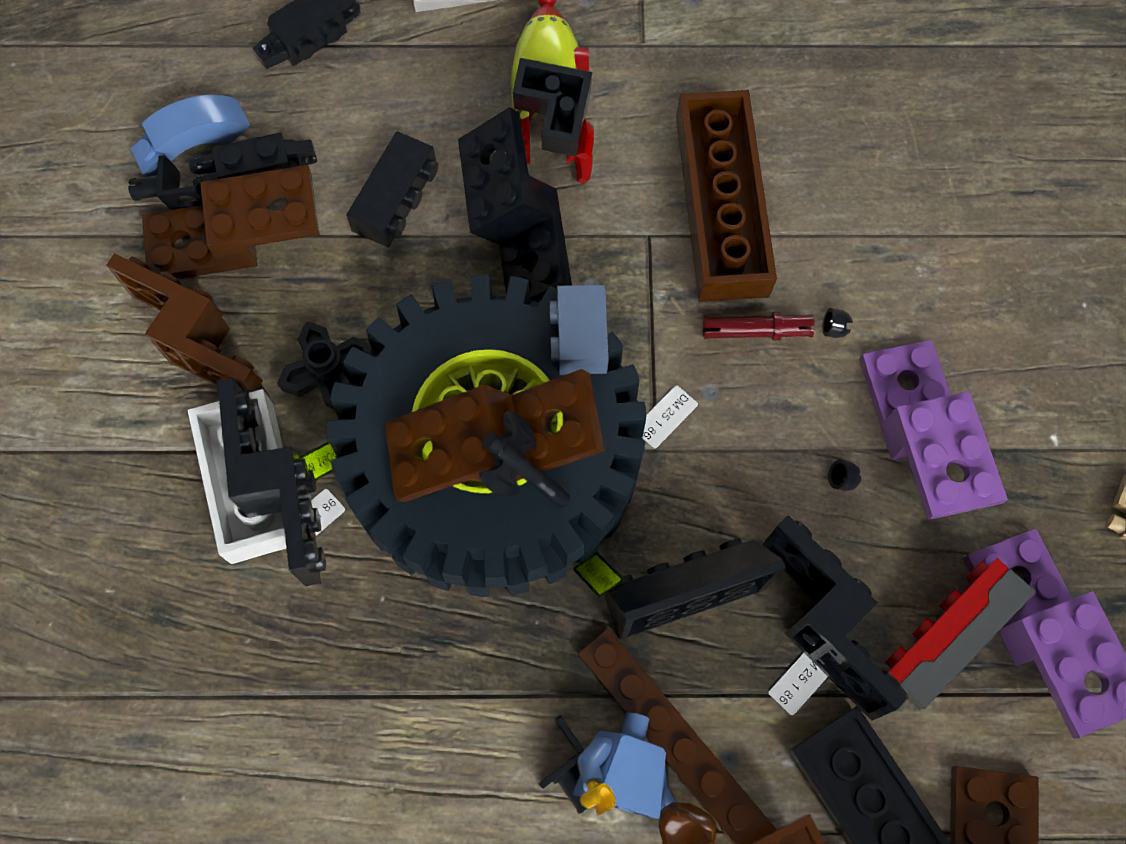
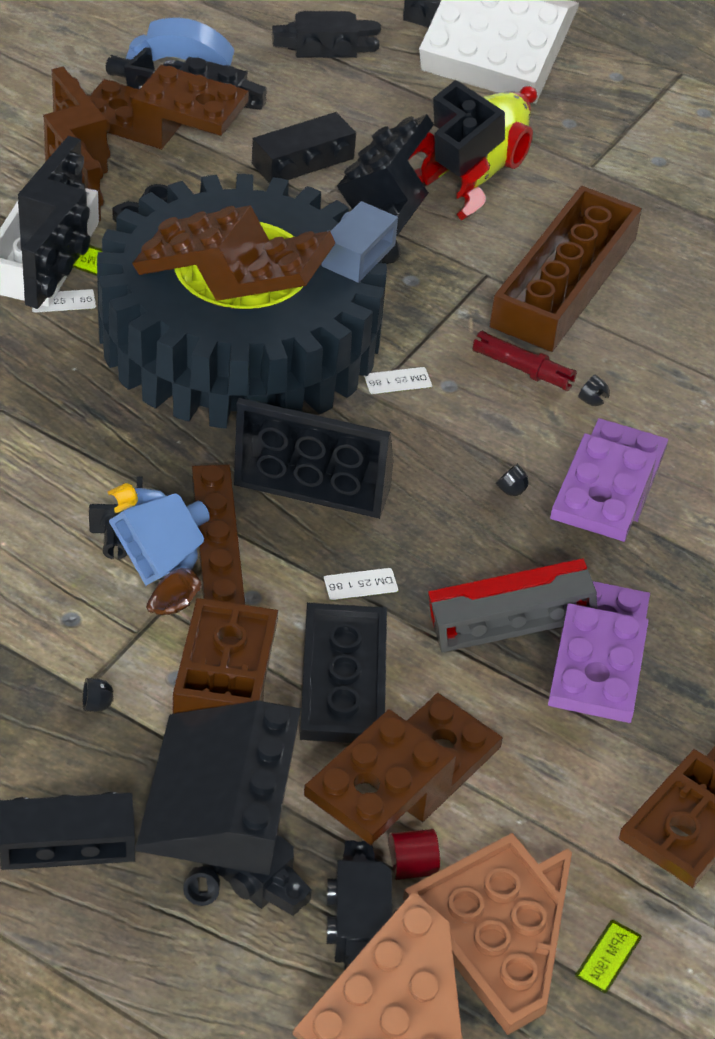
camera: 30 degrees right, 25 degrees down
(512, 461) = (231, 252): black piece -> none
(837, 609) = (412, 536): black bracket -> none

